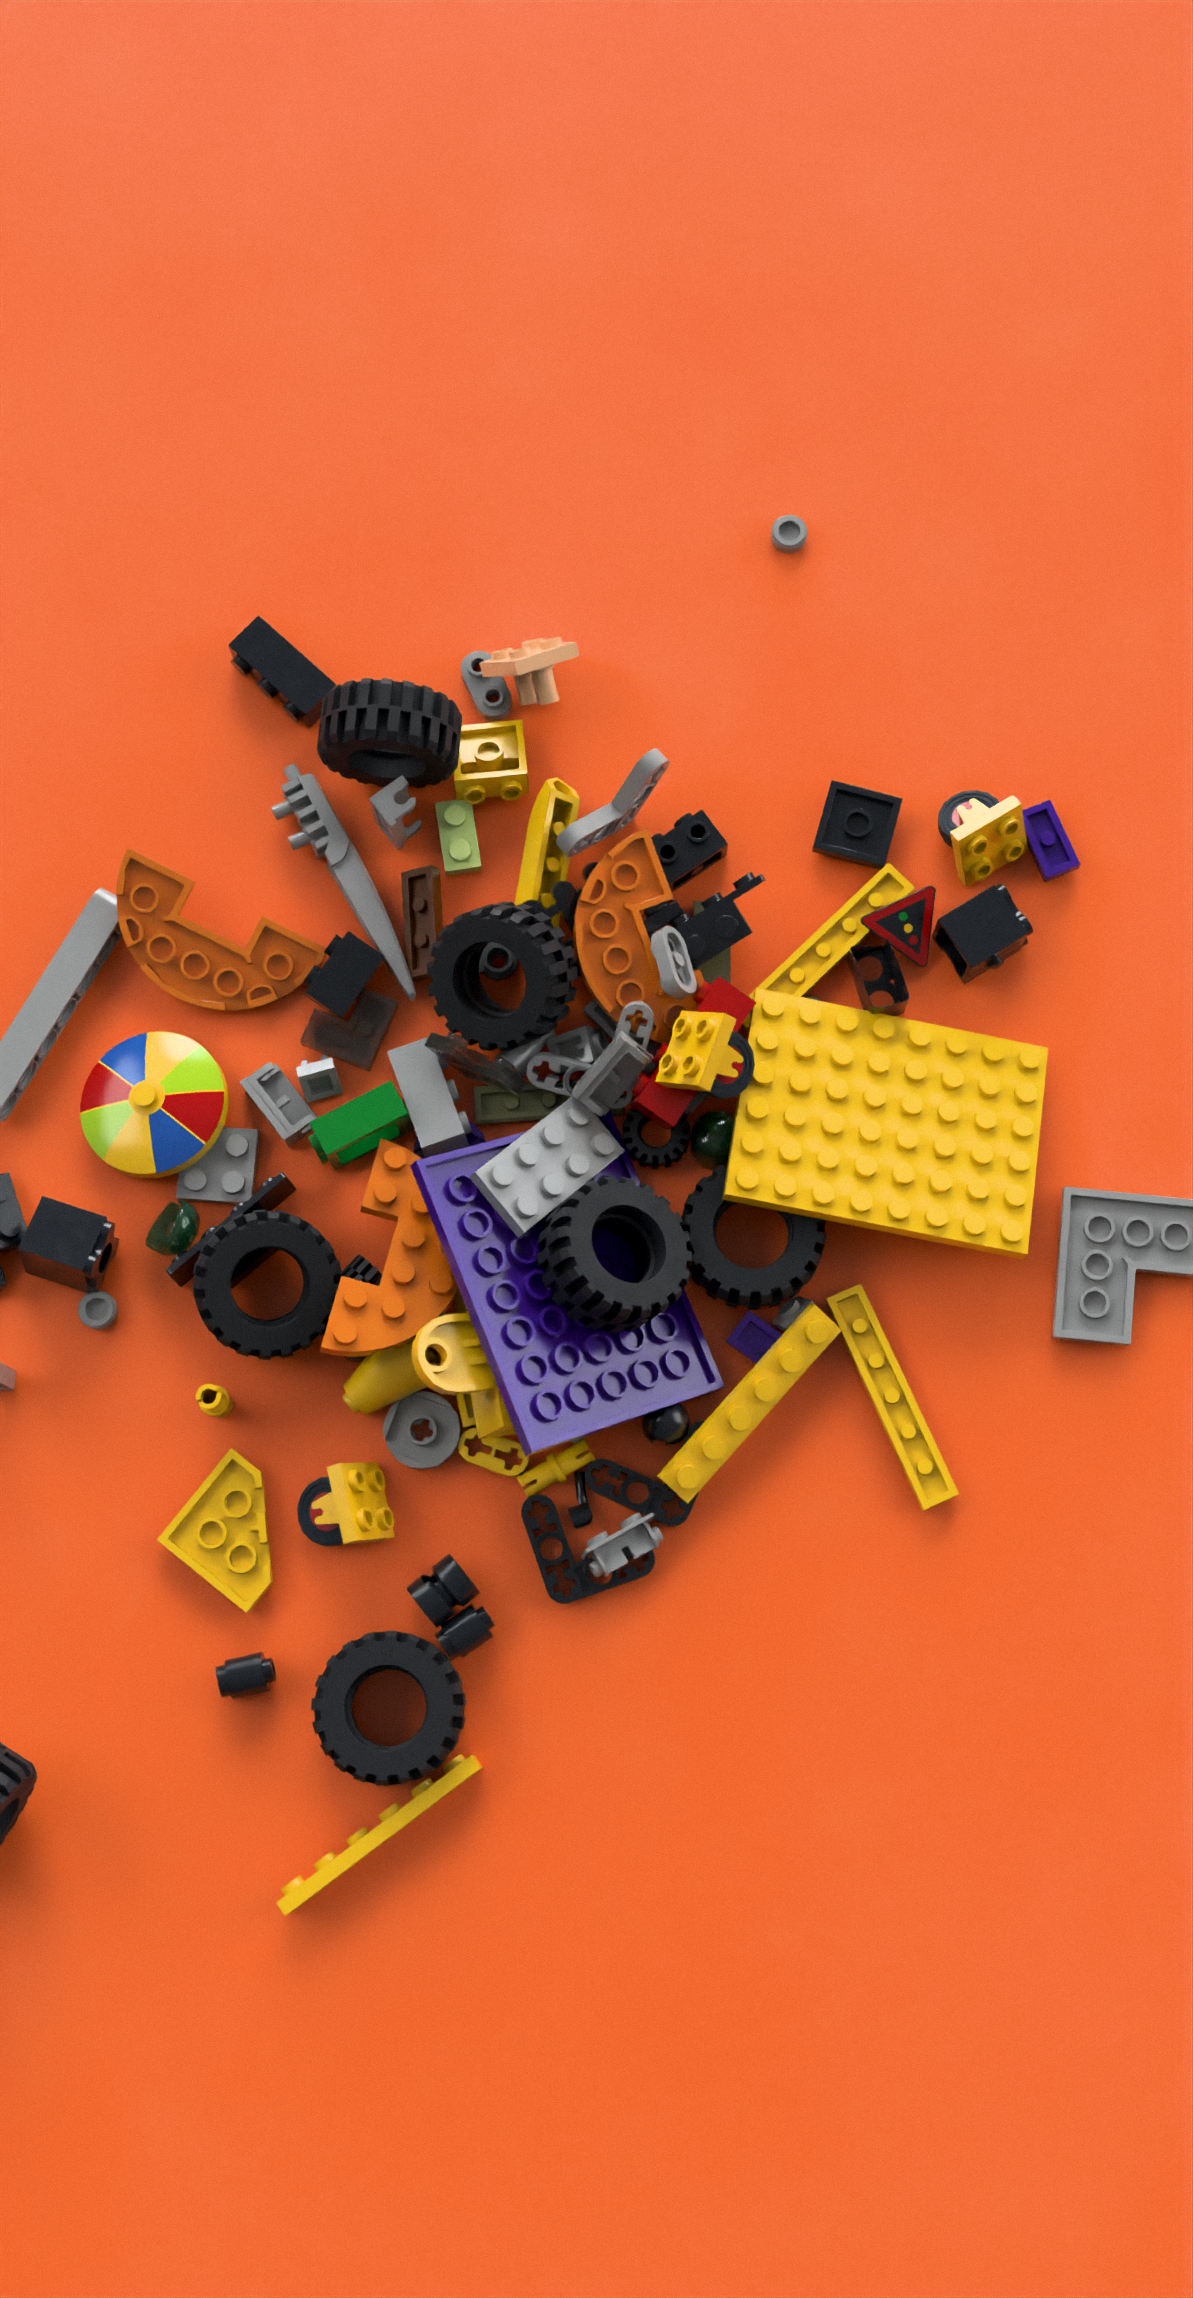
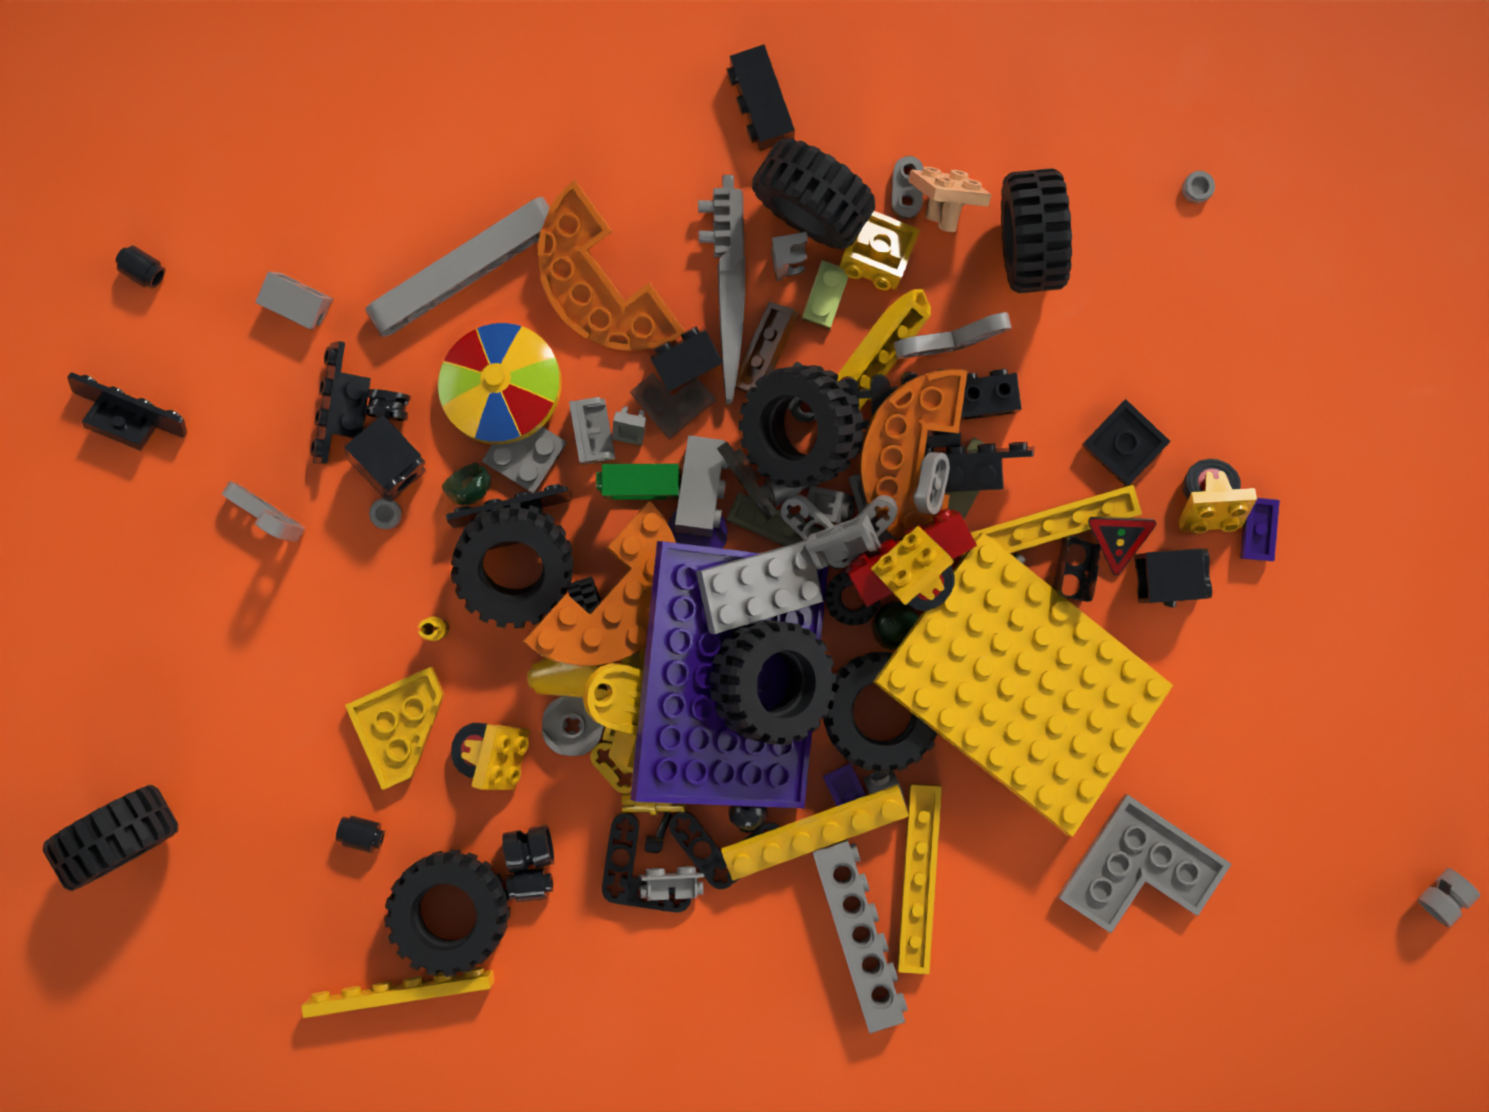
camera: 25 degrees right, 10 degrees up
(41, 1182) = (388, 403): none -> black wheel
(642, 654) = (1036, 230): none -> black tyre
(940, 1549) = (877, 1013): none -> light grey brick

